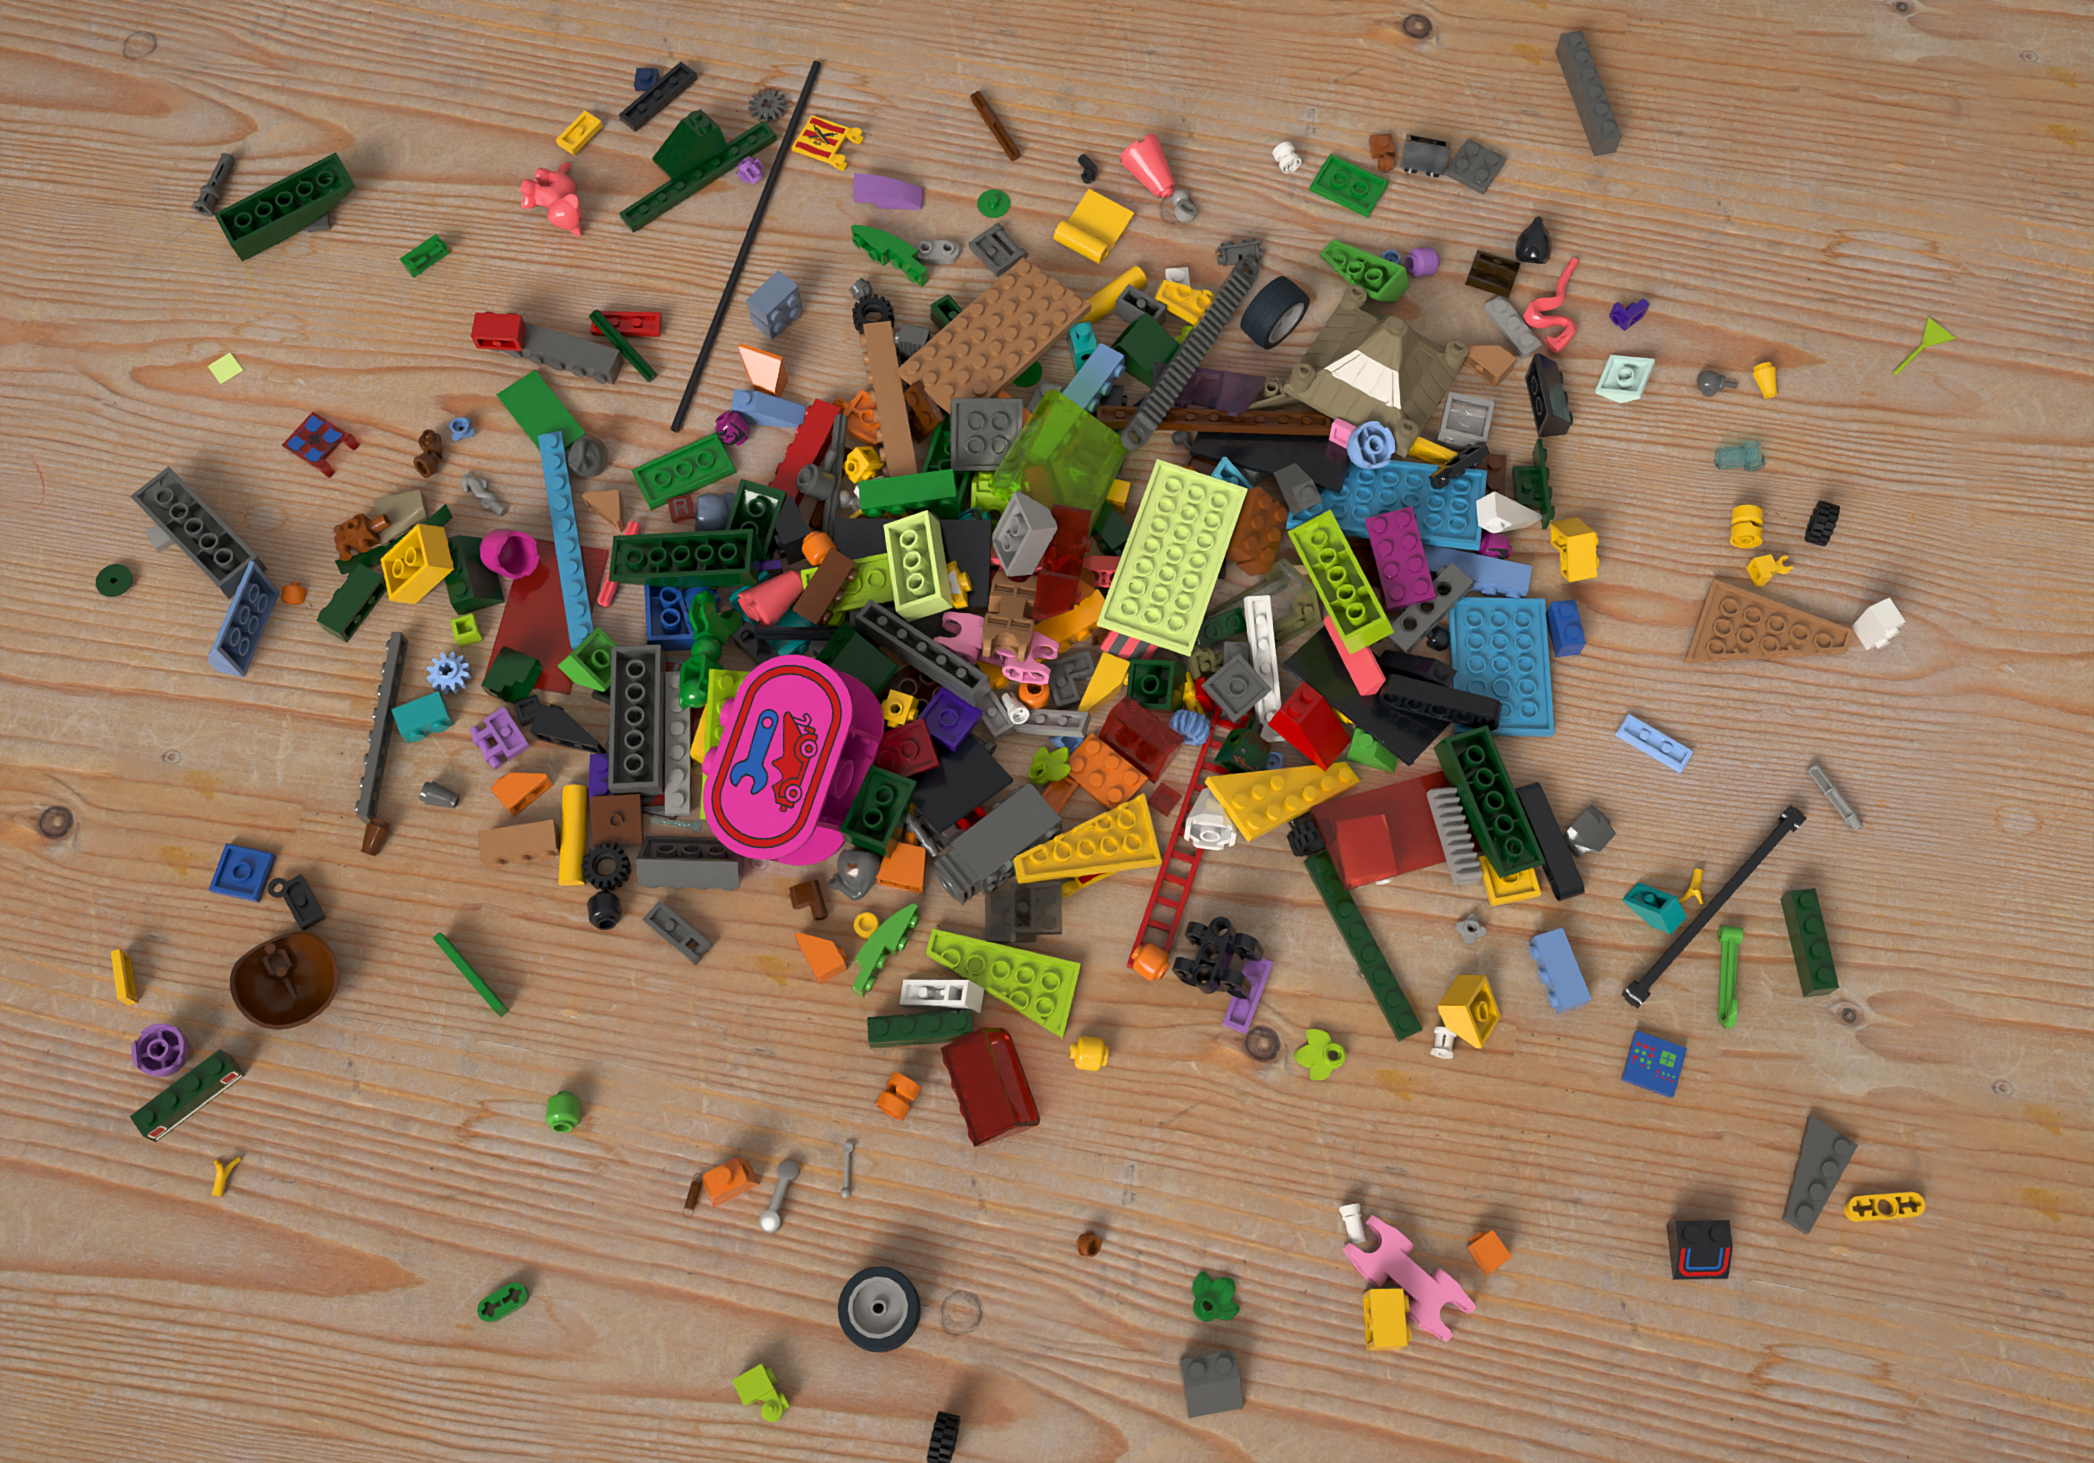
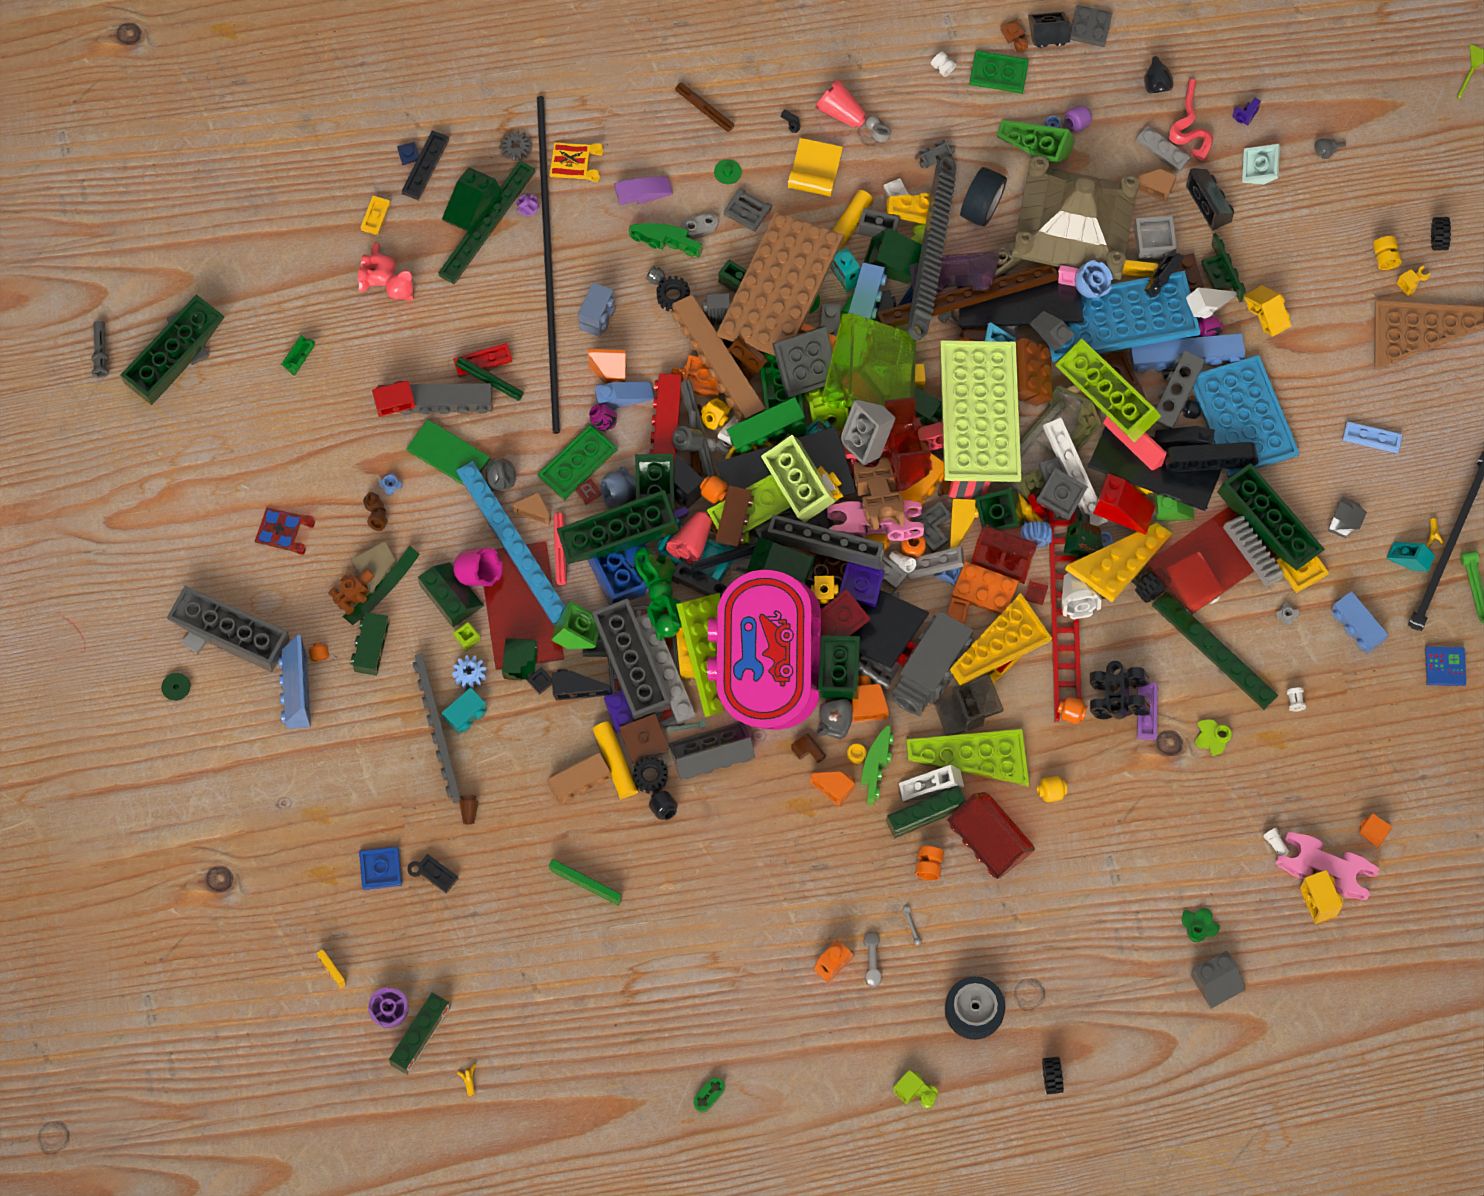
camera: 20 degrees left, 0 degrees up
(225, 368) = (178, 495): yellowish green sticker -> none
(285, 981) = (458, 928): reddish brown piece -> none
(417, 563) = (413, 598): yellow brick -> none
(438, 795) = (502, 764): dark grey cone -> none
(478, 487) = (424, 525): light grey animal -> none
(505, 733) = (530, 702): medium lavender plate -> none
(520, 789) = (561, 740): orange slope -> none
(563, 1112) = (695, 953): bright green head -> none
(676, 932) = (722, 803): dark grey plate -> none
(693, 1195) = (811, 979): dark orange piece -> none
(1049, 766) = (946, 593): lime plate -> none
(1088, 1244) = (1101, 917): dark orange plate -> none
(1221, 627) = (1033, 451): dark green hinge -> none
(1400, 558) = (1145, 359): magenta plate -> none
(1470, 1009) = (1306, 669): yellow slope -> none
(1492, 273) = (1134, 111): dark brown slope -> none
(1559, 864) = (1335, 548): black beam -> none
(1565, 628) = (1281, 372): blue brick -> none
(1746, 456) = (1370, 197): clear light blue piece -> none
(1766, 379) = (1365, 132): yellow cone -> none

